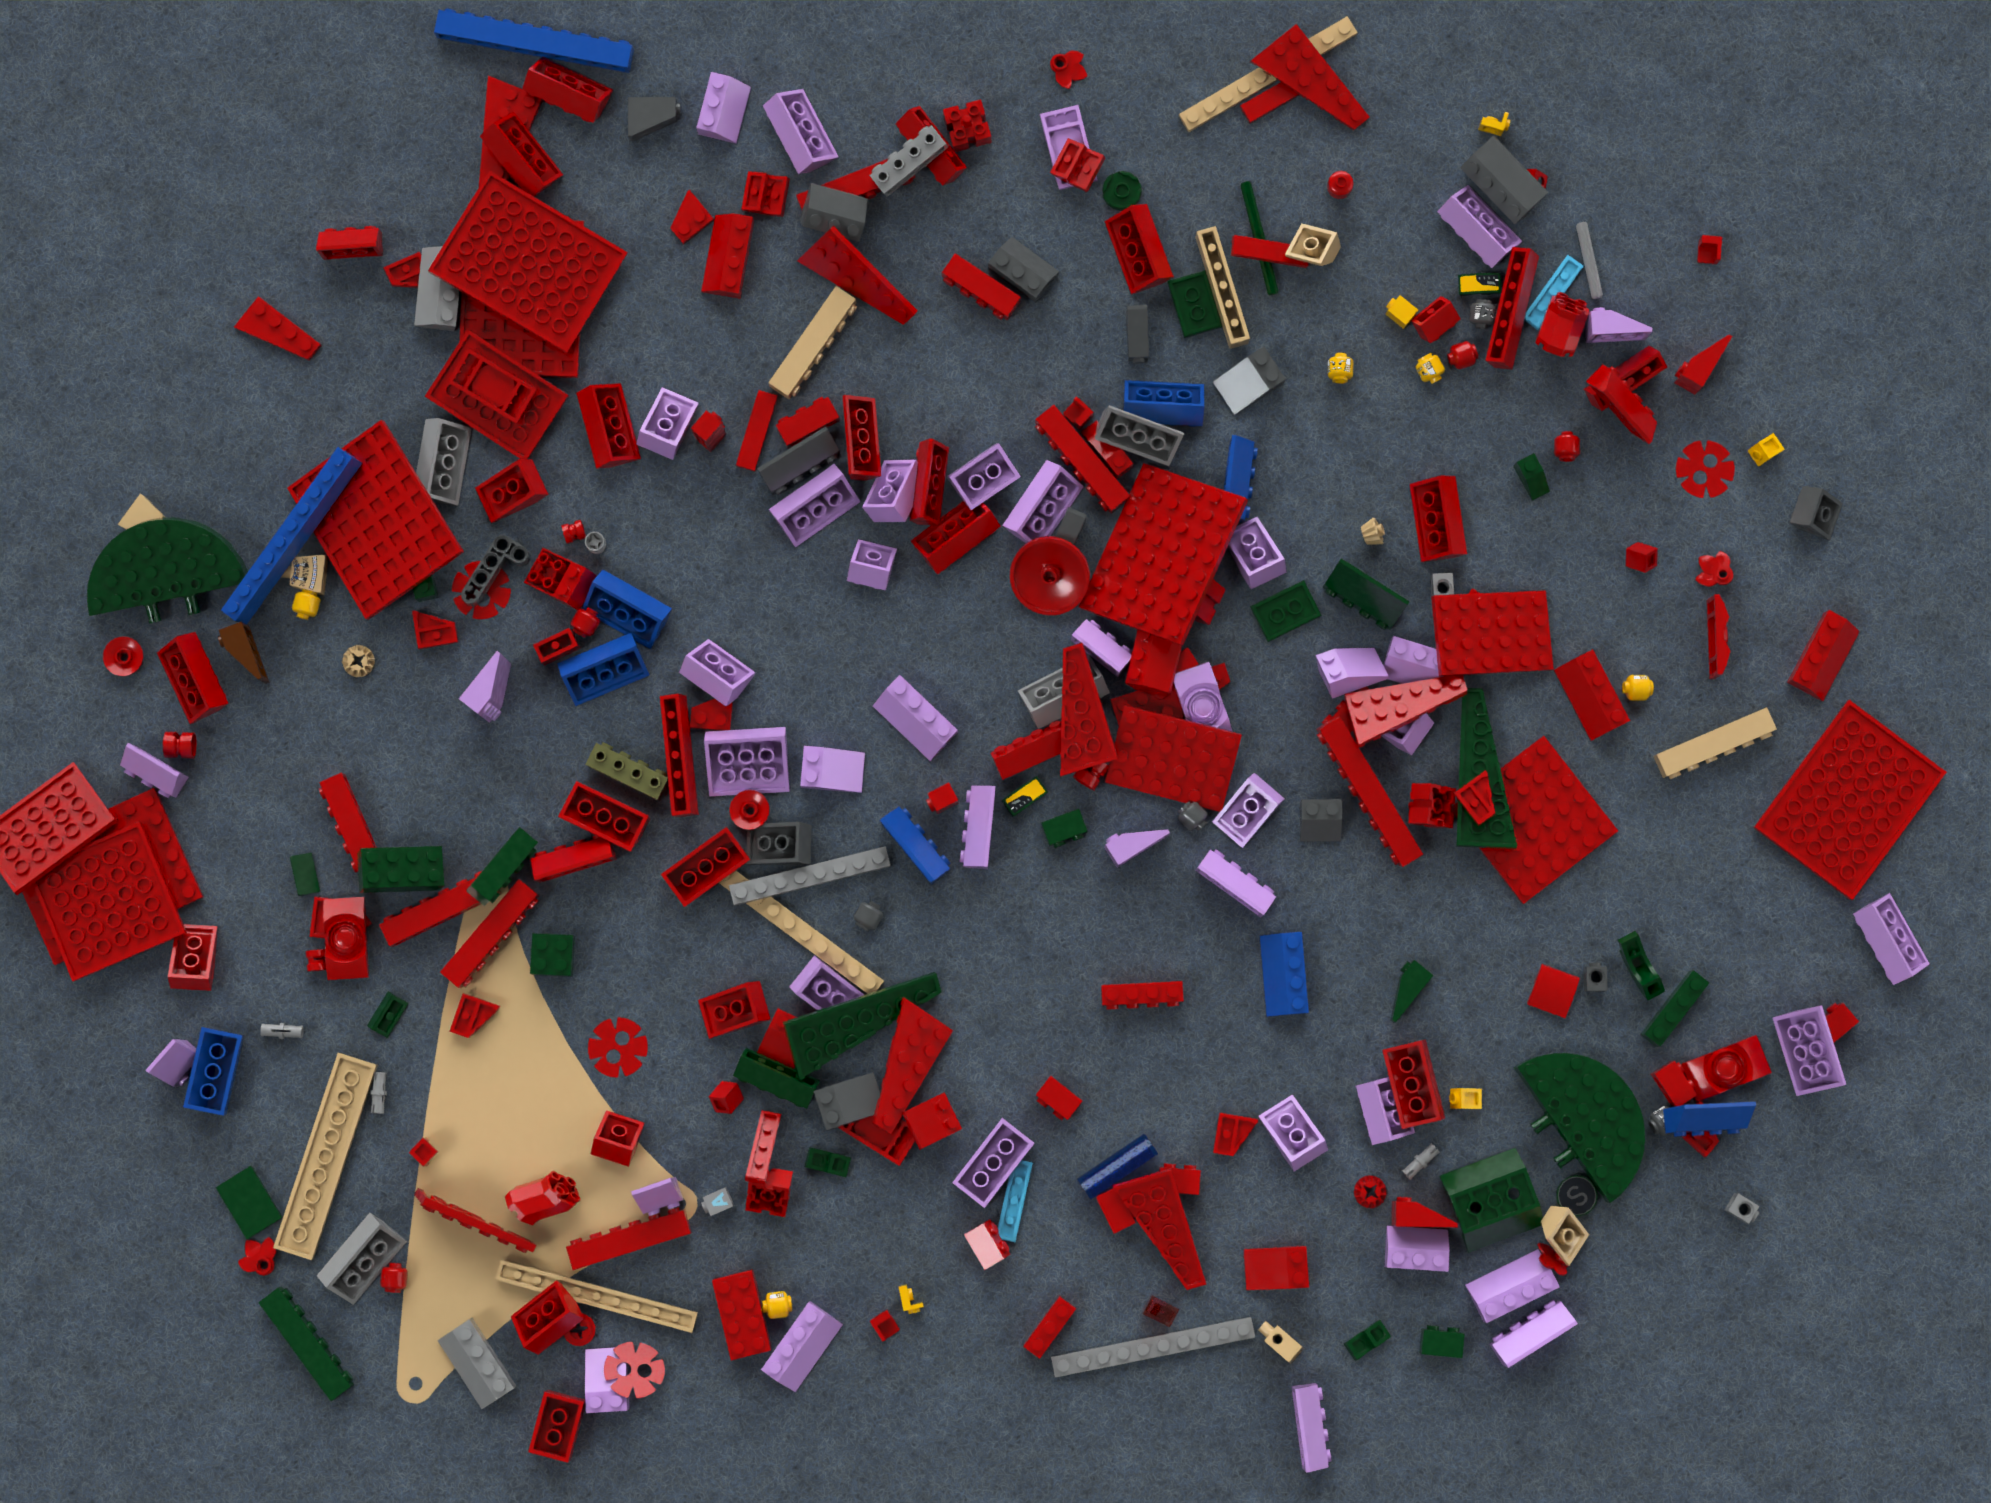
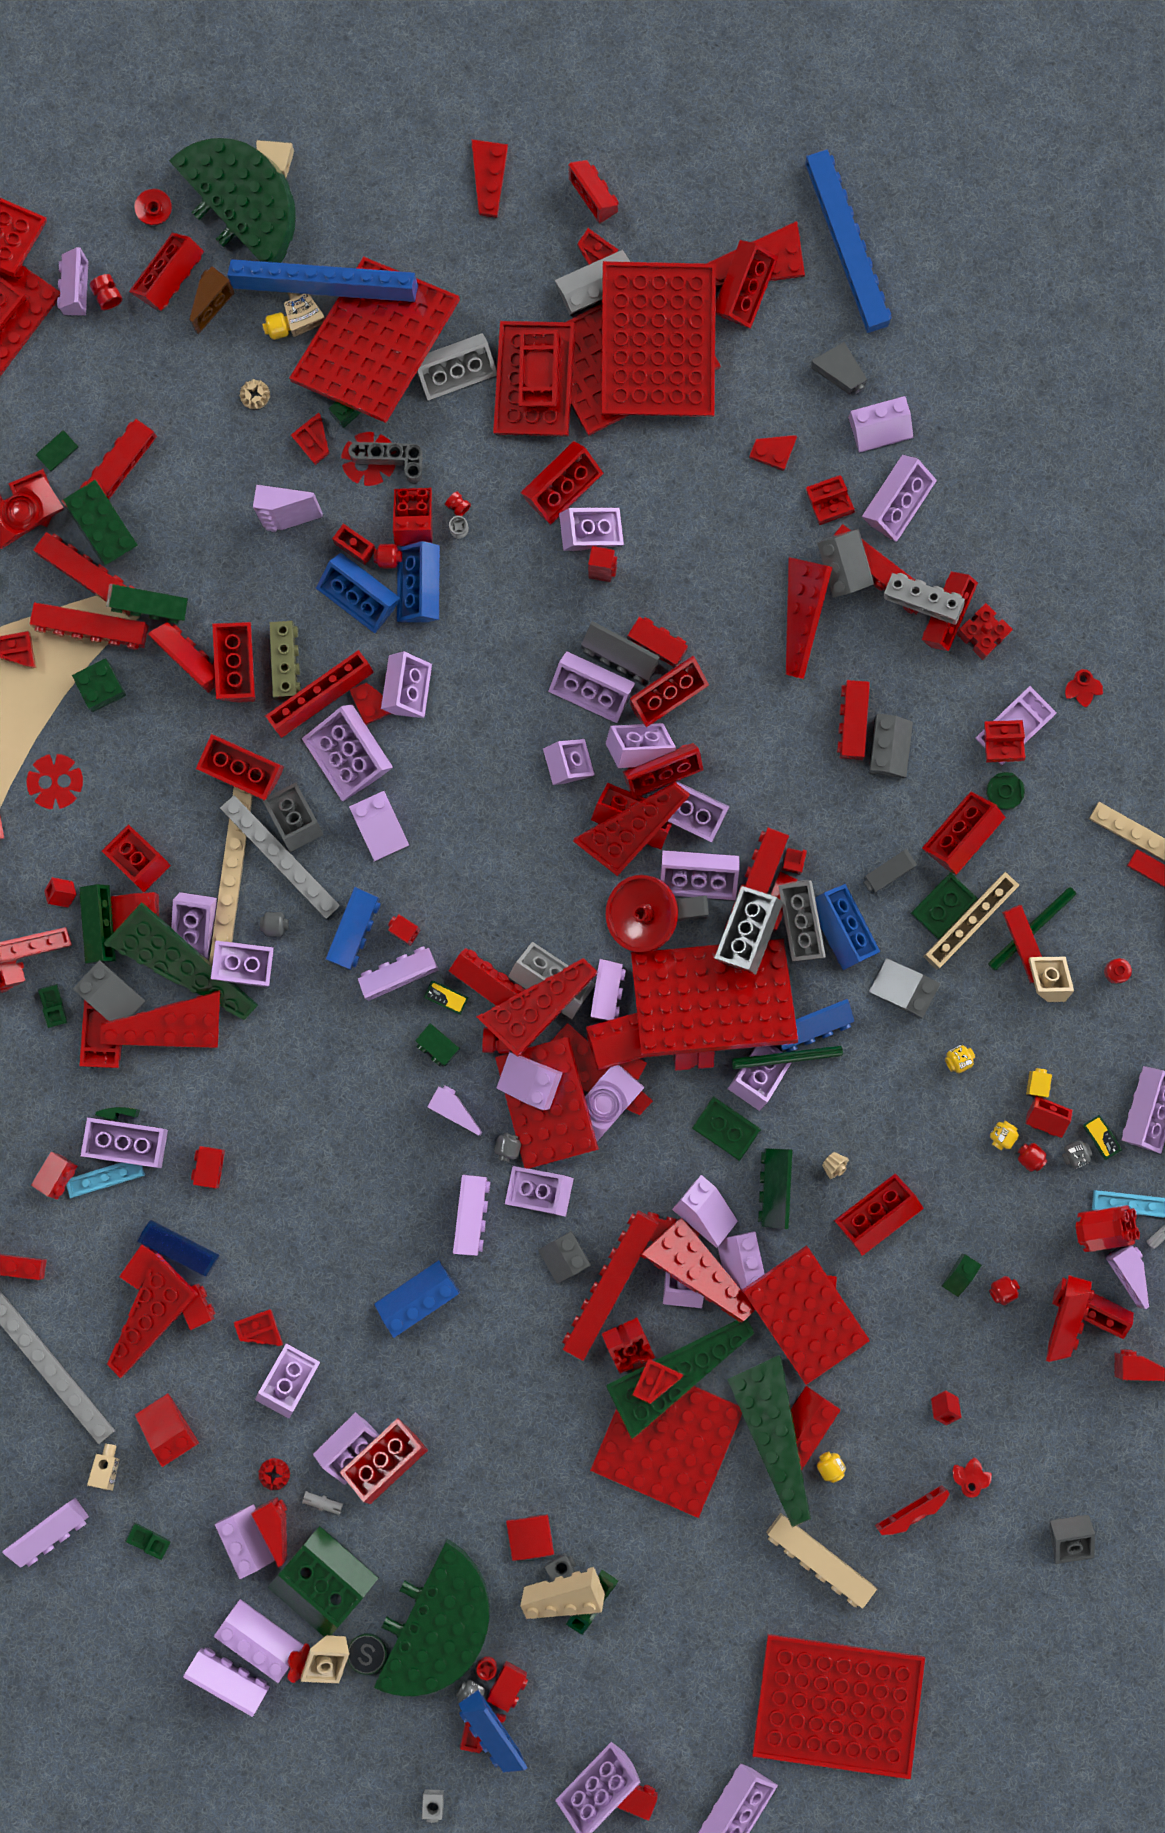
camera: 65 degrees right, 0 degrees up
(511, 490) = (464, 435): red slope -> none
(566, 89) = (822, 289): red slope -> none
(728, 255) = (760, 499): red slope -> none
(744, 801) = (305, 768): red dish -> none
(756, 430) = (627, 605): red tile -> none
(813, 342) = (727, 609): tan brick -> none
(891, 962) = (242, 963): none -> lavender slope
(915, 718) = (460, 869): lavender slope -> none
(932, 1120) = (130, 1072): red slope -> none
(959, 1160) = (113, 1113): none -> dark green slope
(970, 548) = (625, 834): none -> red wing
(1121, 487) = (748, 930): none -> dark grey brick
(1142, 993) = (333, 1187): red brick -> none
(1145, 761) = (529, 1081): none -> lavender slope
(1160, 1310) = (77, 1350): clear red slope -> none
(1253, 519) = (787, 1057): none -> dark green axle
(1409, 986) = (467, 1411): dark green slope -> none
(1442, 578) = (830, 1249): light grey brick -> none
(1442, 1342) = (179, 1606): dark green brick -> none
(1465, 1098) = (396, 1512): yellow bracket -> none
(1512, 308) = (1097, 1176): red brick -> none
(1561, 716) = (767, 1411): none -> dark green wing
(1623, 986) = (564, 1596): none -> tan wedge
(1651, 1094) = (486, 1672): none -> red wheel
(1674, 1008) = (572, 1651): dark green brick -> none
(1696, 455) = (1061, 1435): red piece -> none
(1727, 1068) = (547, 1725): red slope -> none
(1765, 449) = (1102, 1464): yellow bracket -> none
(1824, 655) = (951, 1614): red slope -> none

